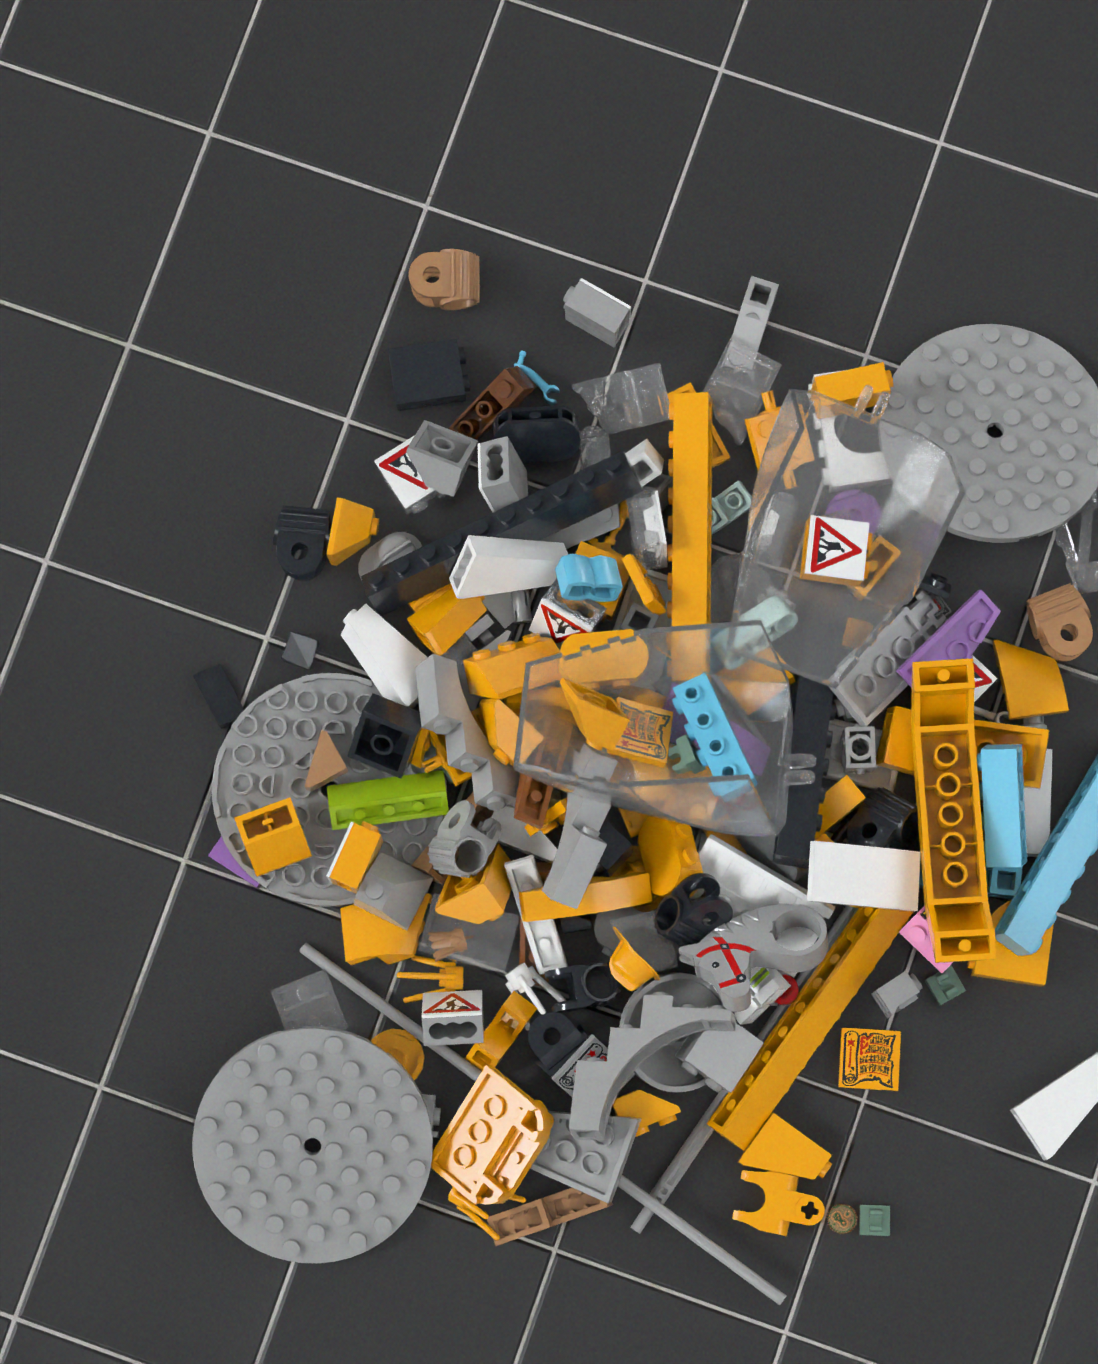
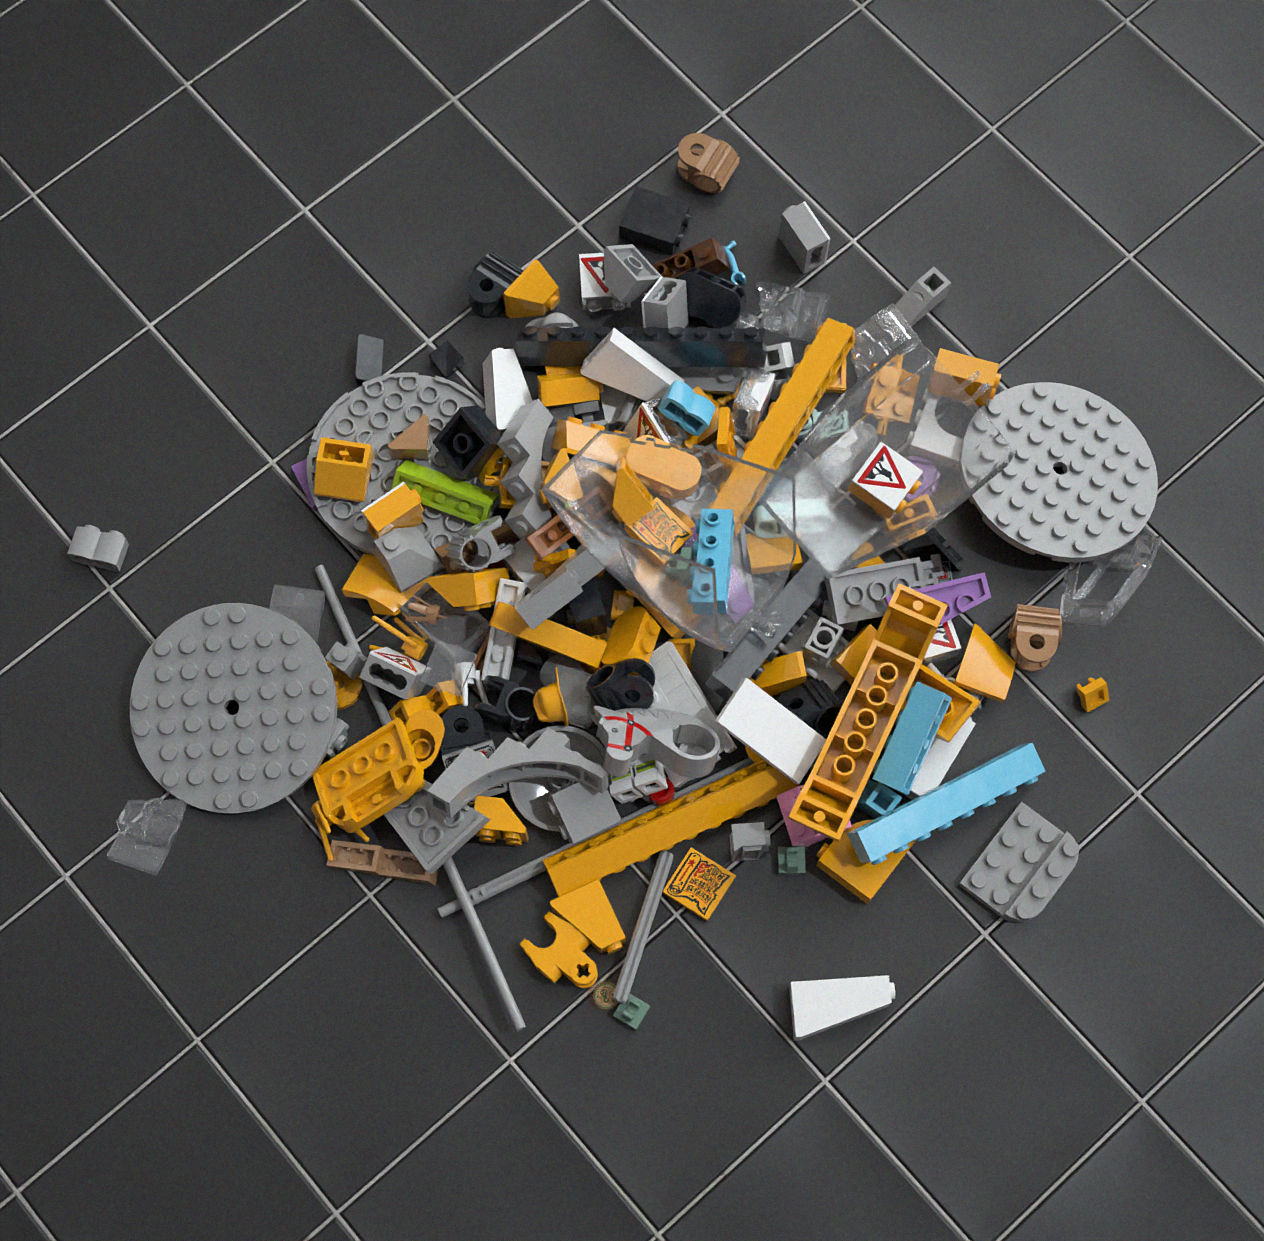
camera: 25 degrees right, 10 degrees down
(65, 1054) = (98, 548): none -> light grey brick
(299, 1314) = (147, 832): none -> clear slope
(395, 1030) = (346, 659): none -> light grey brick
(505, 985) = (448, 668): none -> clear piece
(522, 1065) = (426, 734): none -> light orange piece
(840, 1133) = (643, 927): none -> light grey axle

